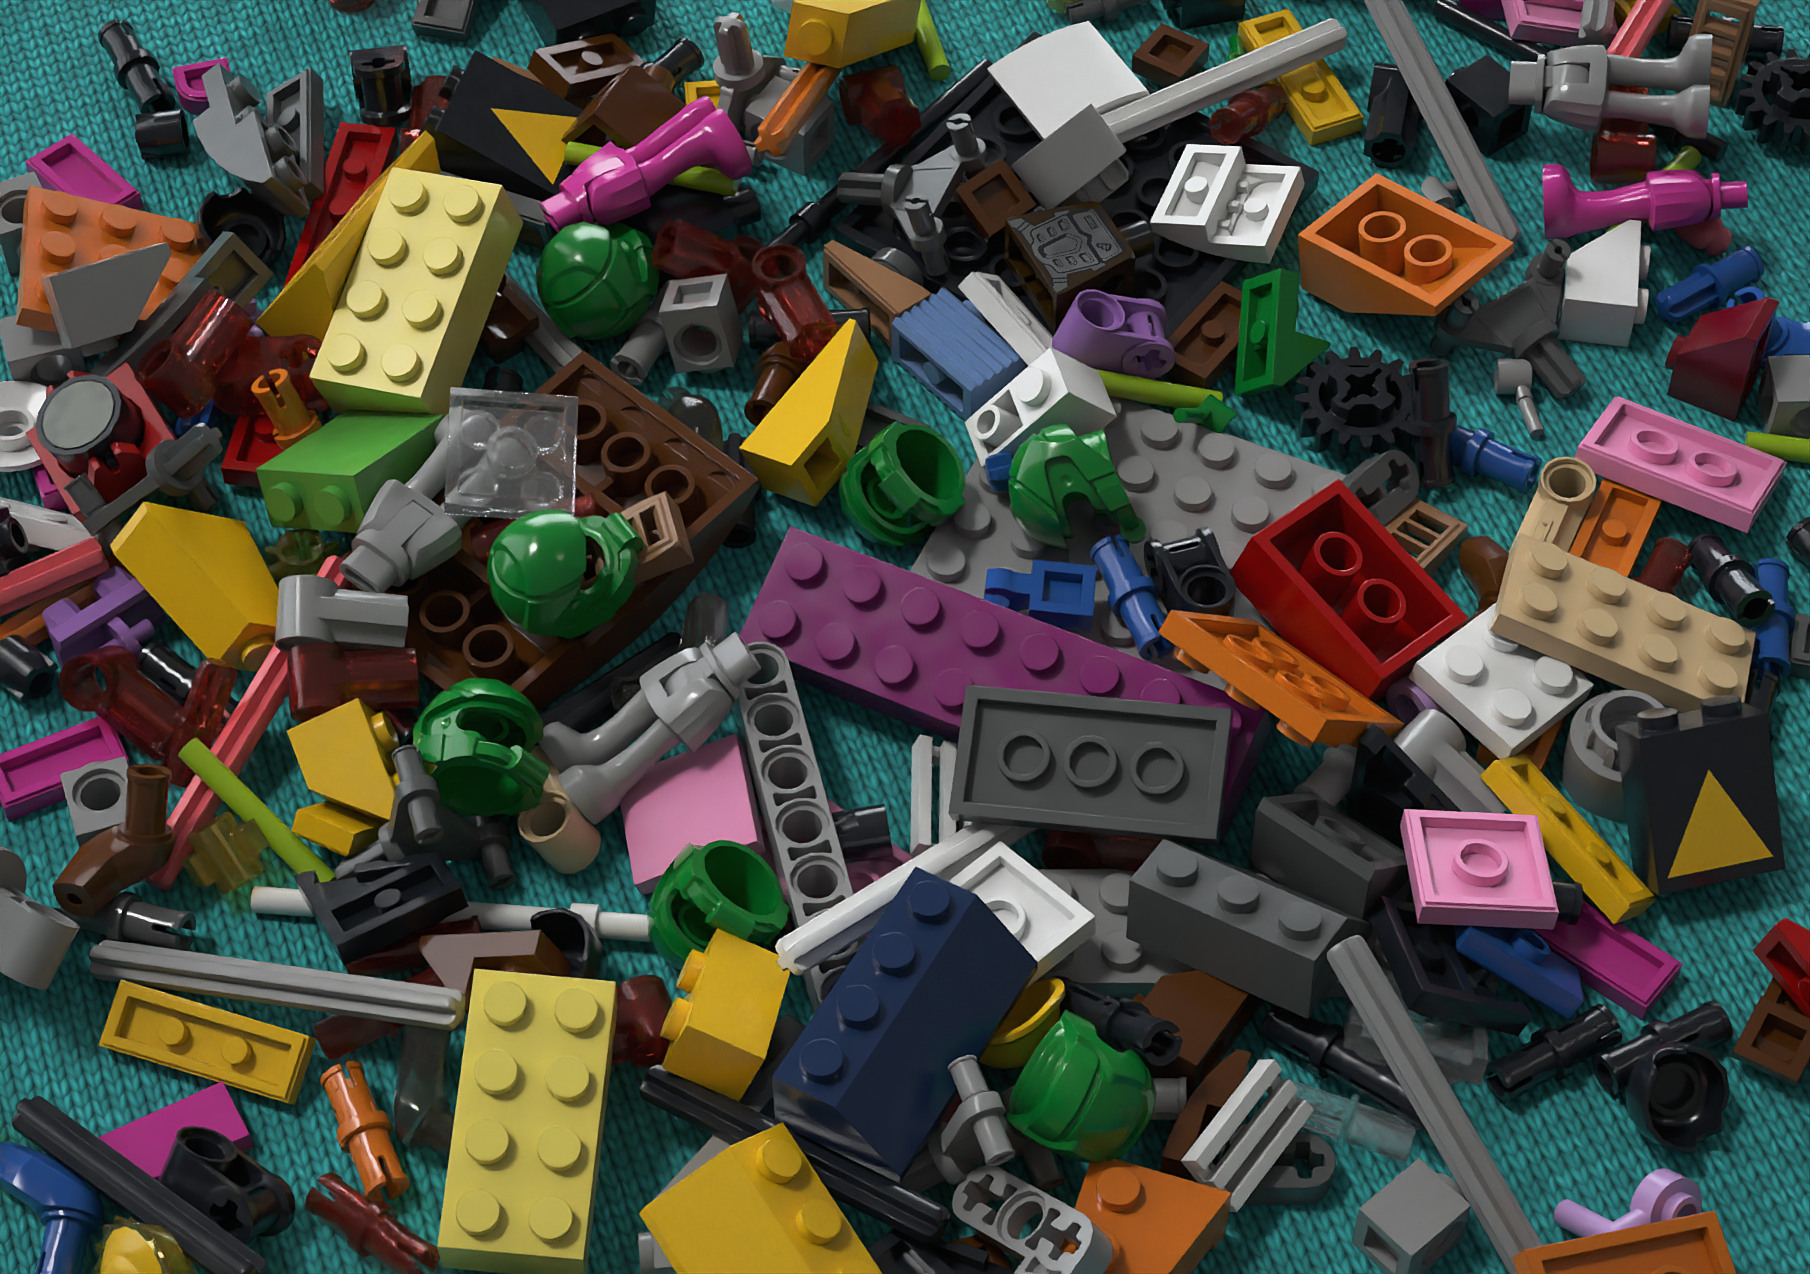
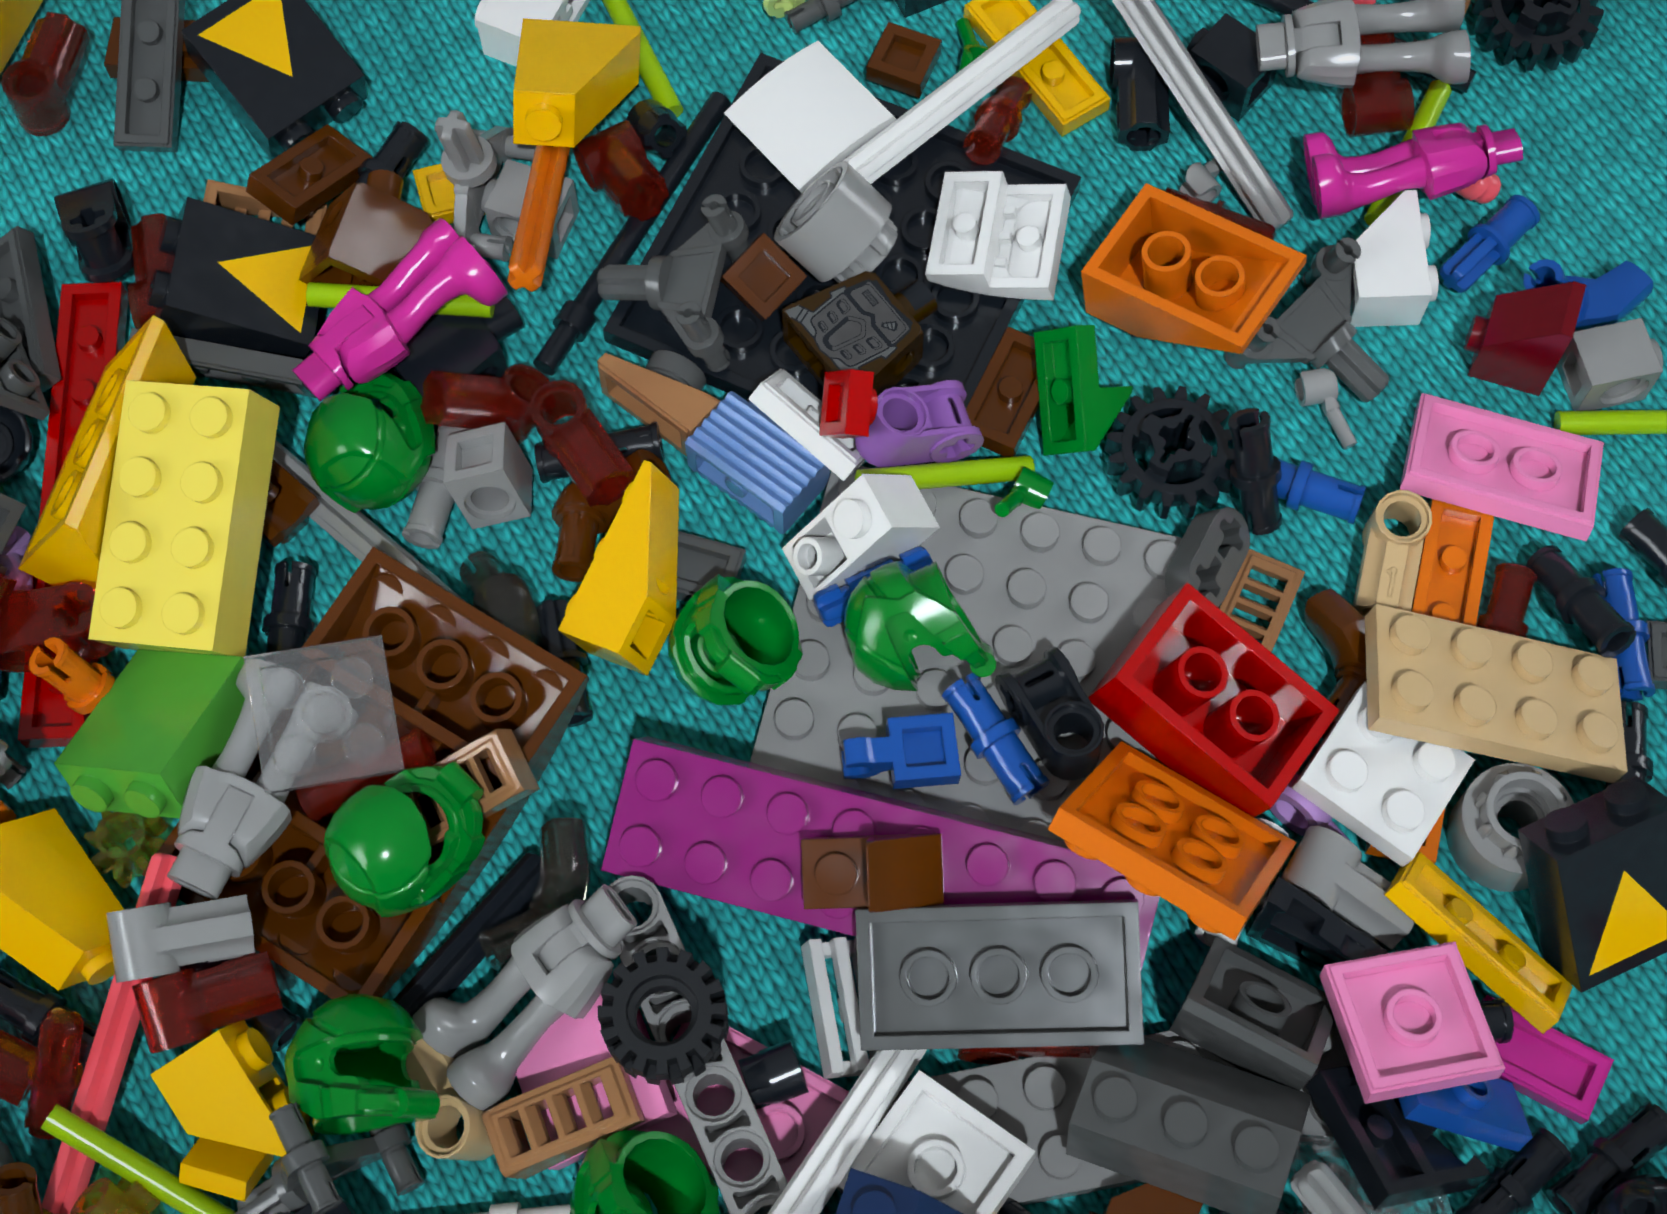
camera: 10 degrees left, 15 degrees up
(630, 820) = (508, 1135): none -> medium nougat slope
(776, 775) = (663, 973): none -> black tyre
(912, 67) = (647, 118): none -> black hose
(990, 655) = (873, 871): none -> reddish brown slope
(1050, 294) = (848, 404): none -> red plate

